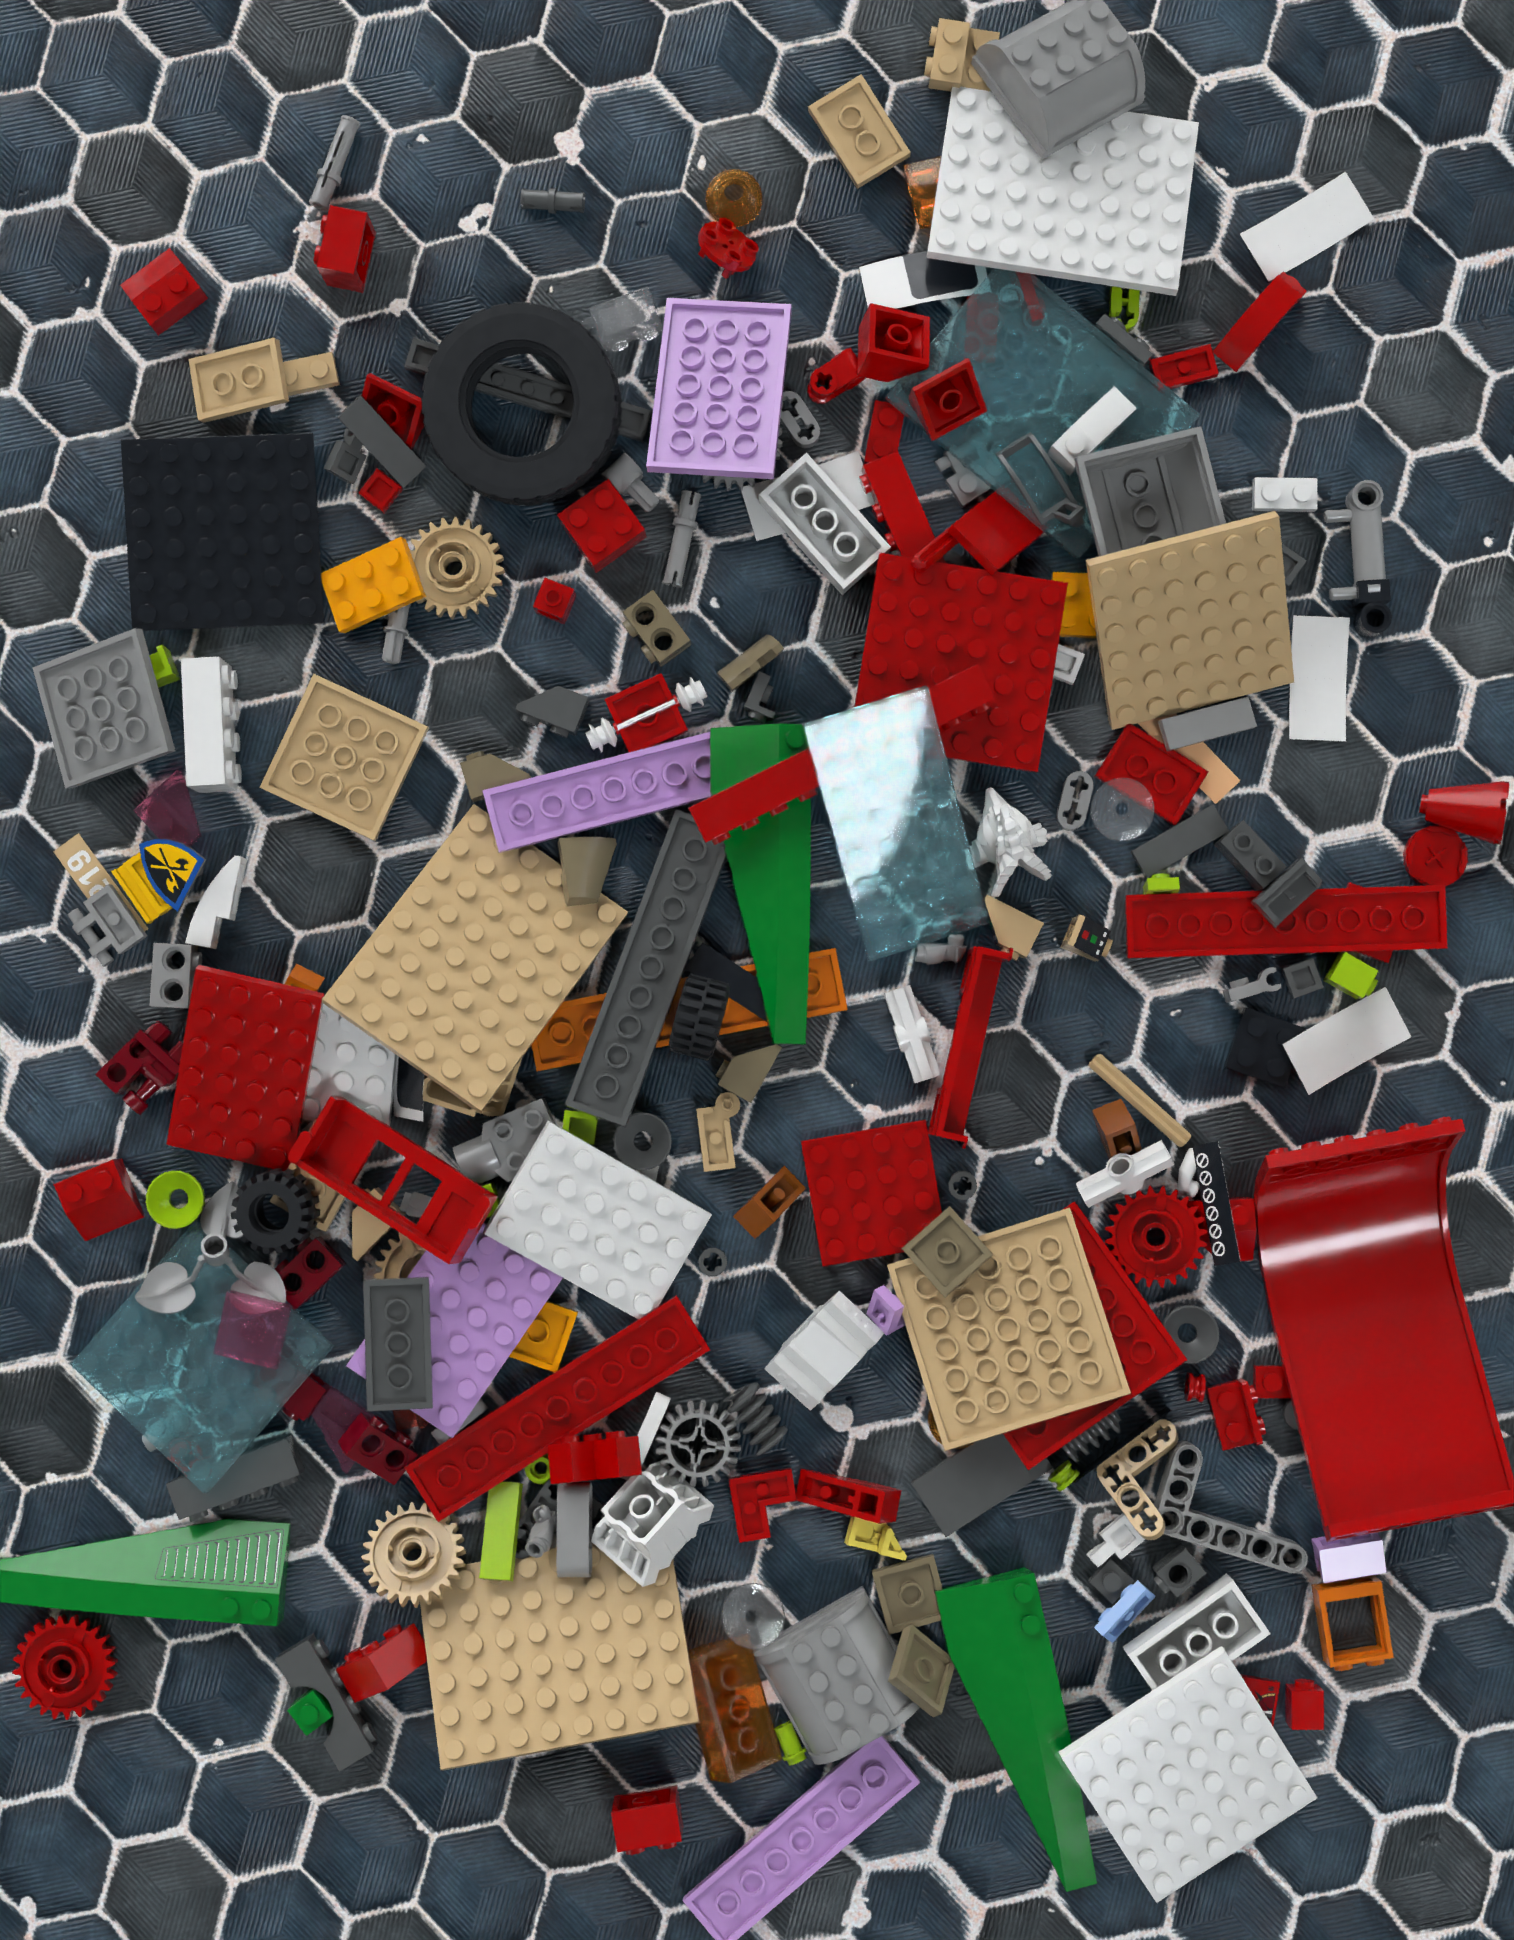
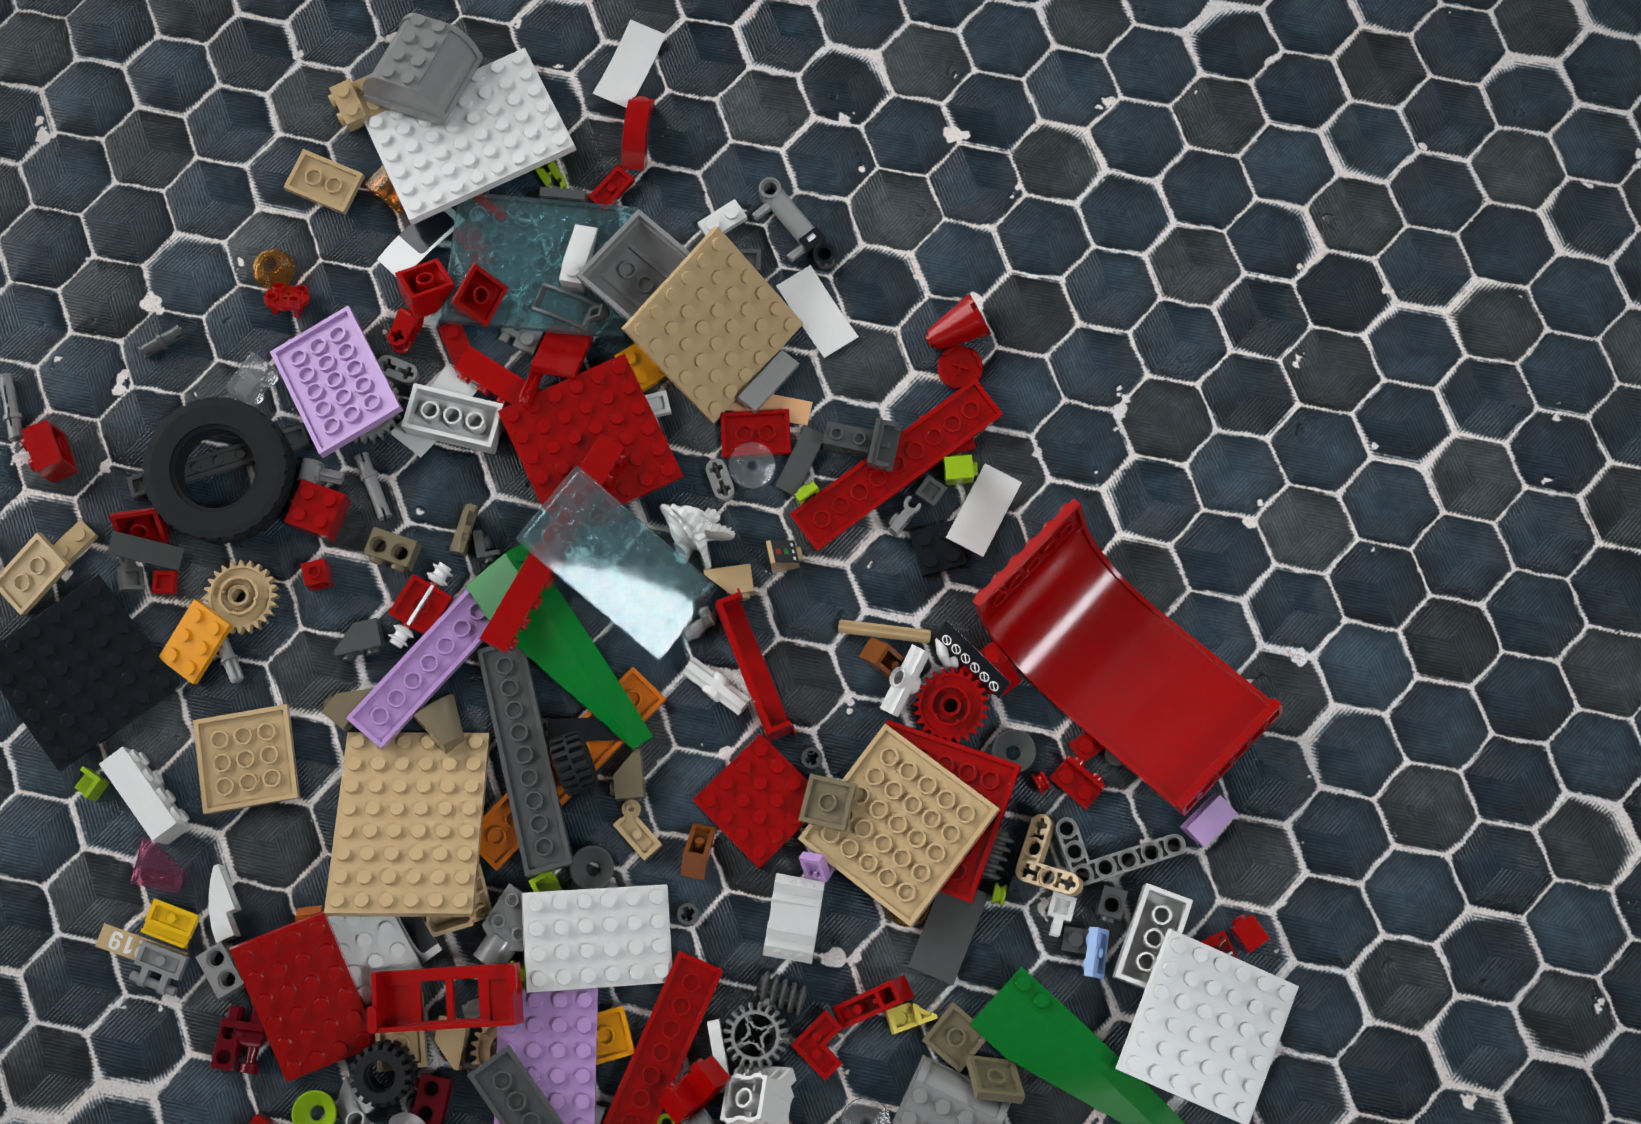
camera: 30 degrees left, 10 degrees down
(104, 708) = (70, 831): light grey plate -> none
(171, 869) = (177, 902): shield -> none
(1349, 1589) = (1252, 886): orange window -> none

